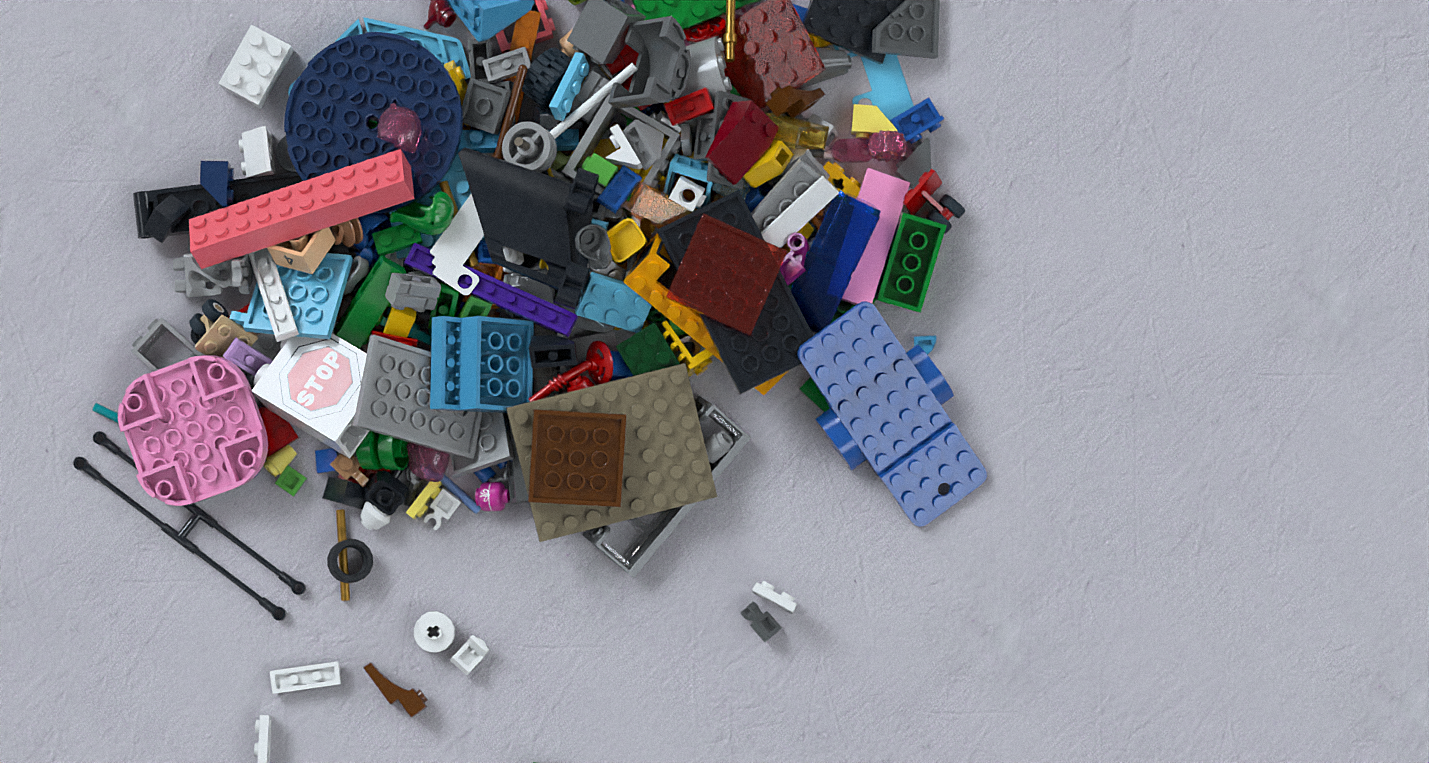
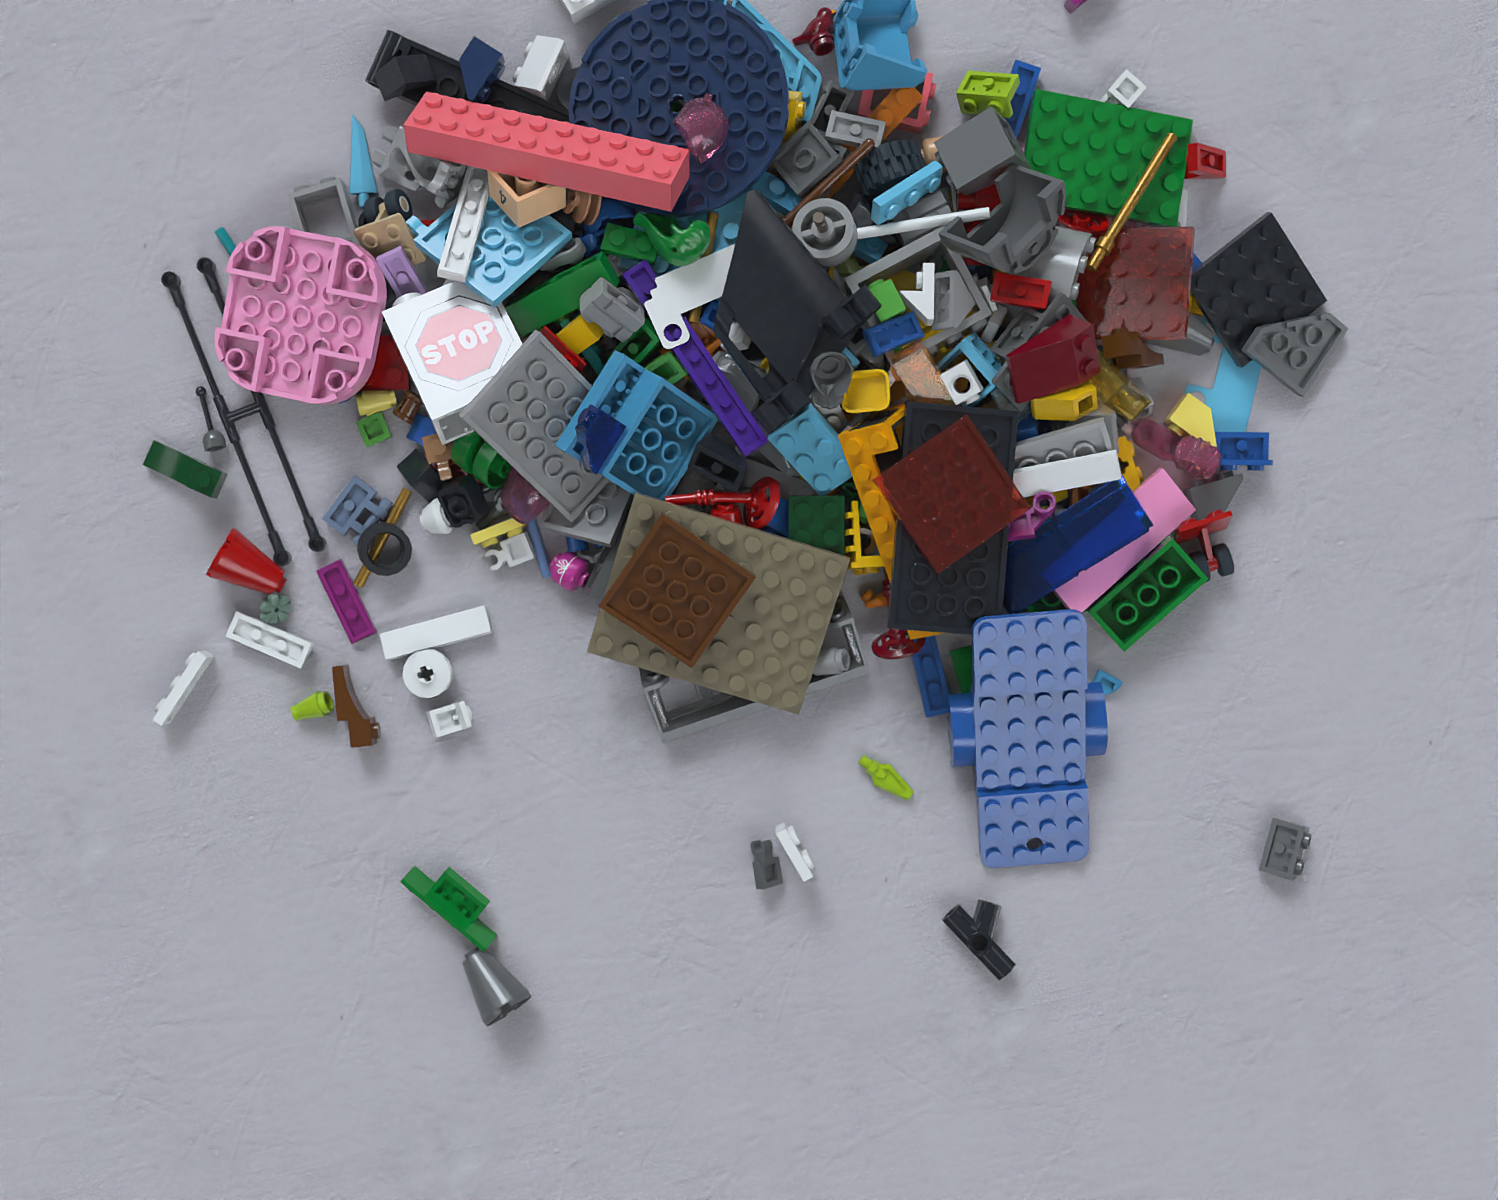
camera: 30 degrees right, 5 degrees up
(172, 304) = (361, 172): none -> medium azure bar
(172, 591) = (185, 469): none -> dark green slope
(179, 558) = (213, 439): none -> hinge
(257, 633) = (246, 565): none -> red cone
(296, 652) = (275, 608): none -> sand green plant
(306, 449) = (408, 407): none -> reddish brown bush
(306, 545) = (351, 505): none -> sand blue plate
(344, 617) = (346, 601): none -> magenta tile
(366, 706) = (314, 706): none -> lime cone
(422, 600) = (436, 633): none -> white tile
(456, 383) = (596, 436): none -> clear blue slope
(722, 386) = (872, 600): none -> orange arm
(753, 399) = (896, 637): none -> dark red dish
(794, 413) = (931, 679): none -> blue plate
(809, 507) = (886, 777): none -> lime piece
(942, 569) = (983, 924): none -> black piece
(1125, 383) = (1285, 849): none -> dark grey bracket

